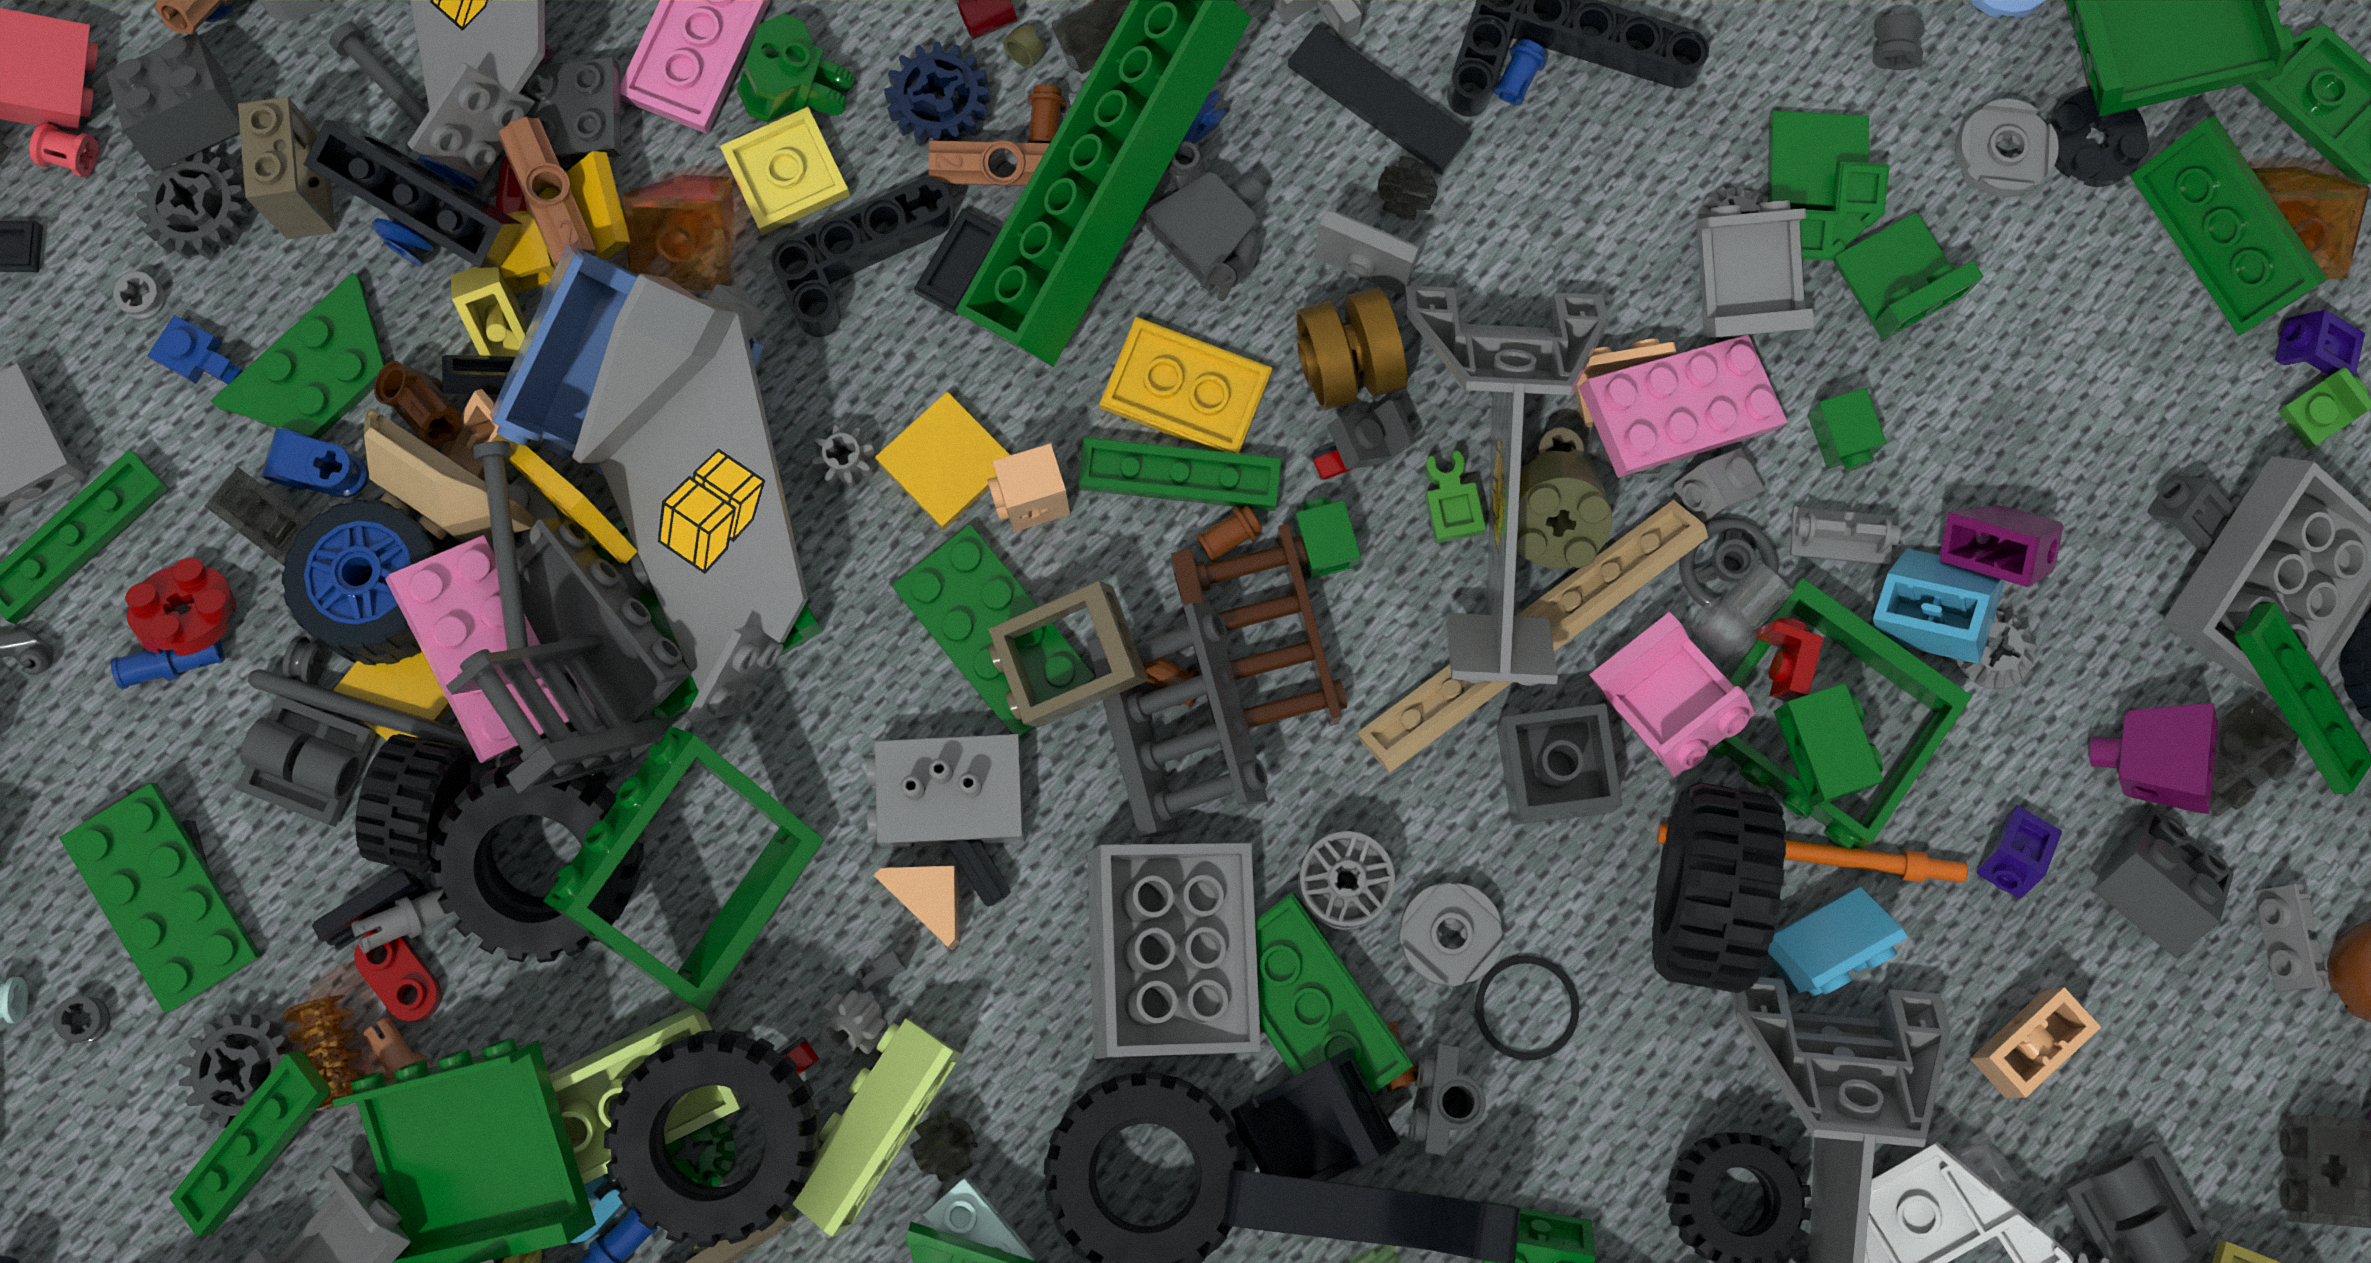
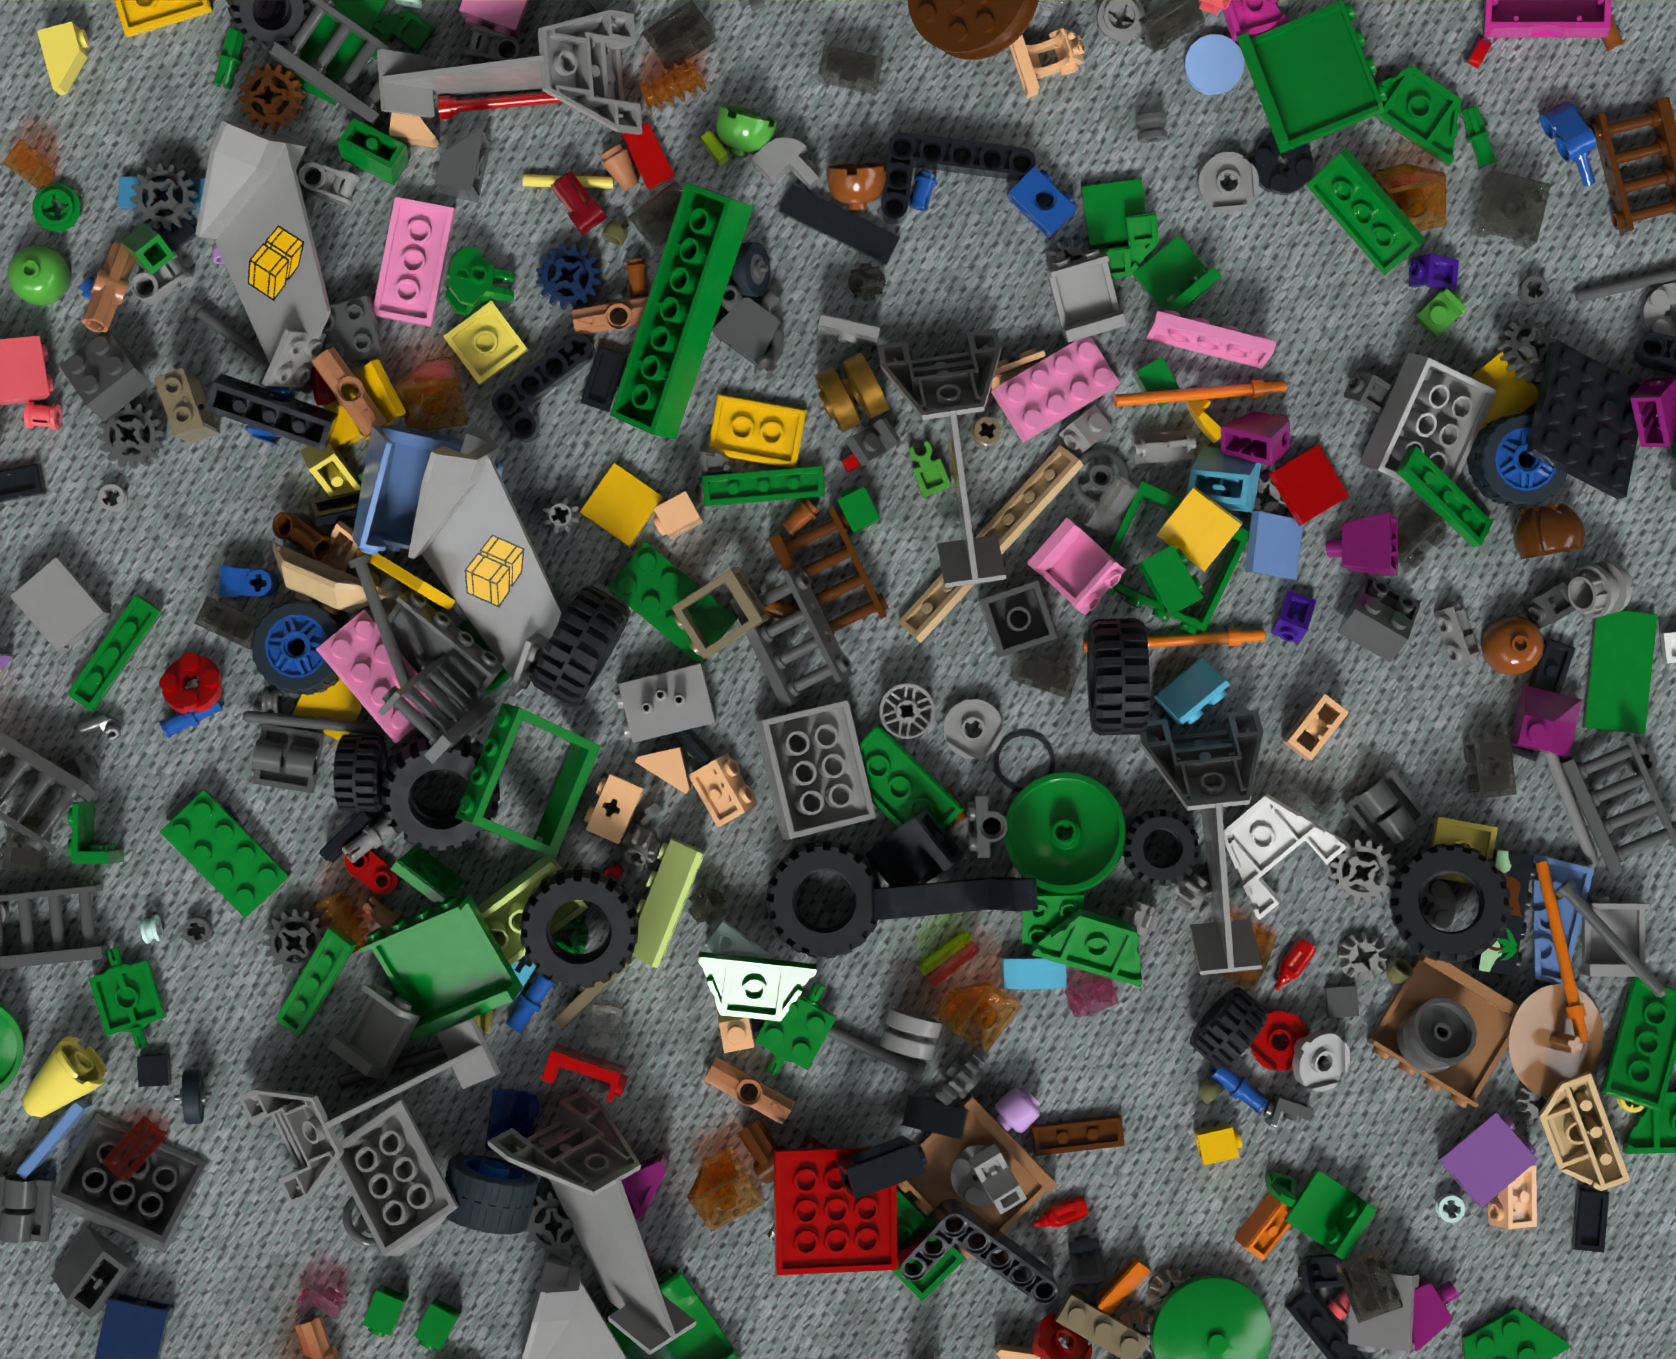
camera: 15 degrees left, 10 degrees up
(191, 352) = (153, 526): blue plate -> none
(314, 368) = (230, 521): green wing -> none
(482, 997) = (427, 875): none -> green tile
(823, 660) = (580, 646): none -> black tyre
(850, 939) = (614, 826): none -> light nougat brick
(1012, 954) = (723, 789): none -> light nougat bracket
(1107, 418) = (714, 462): none -> dark grey tile
(1227, 132) = (751, 269): none -> black wheel
(1419, 36) = (856, 183): none -> dark orange cylinder
(1561, 511) = (992, 469): olive brick -> none
(1580, 1142) = (1065, 832): none -> green dish
(1587, 866) = (1044, 675): none -> clear smoke brick
(1707, 147) = (1048, 219): none -> blue brick
(1796, 661) = (1144, 536): red bracket -> none
(1890, 669) = (1199, 528): none -> yellow tile
(1914, 504) = (1204, 422): none -> yellow slope
(1949, 375) = (1216, 341): none -> bright pink plate
(2002, 470) = (1253, 389): none -> orange bar
(2005, 726) = (1274, 545): none -> medium blue tile
(2074, 640) = (1308, 485): none -> red tile

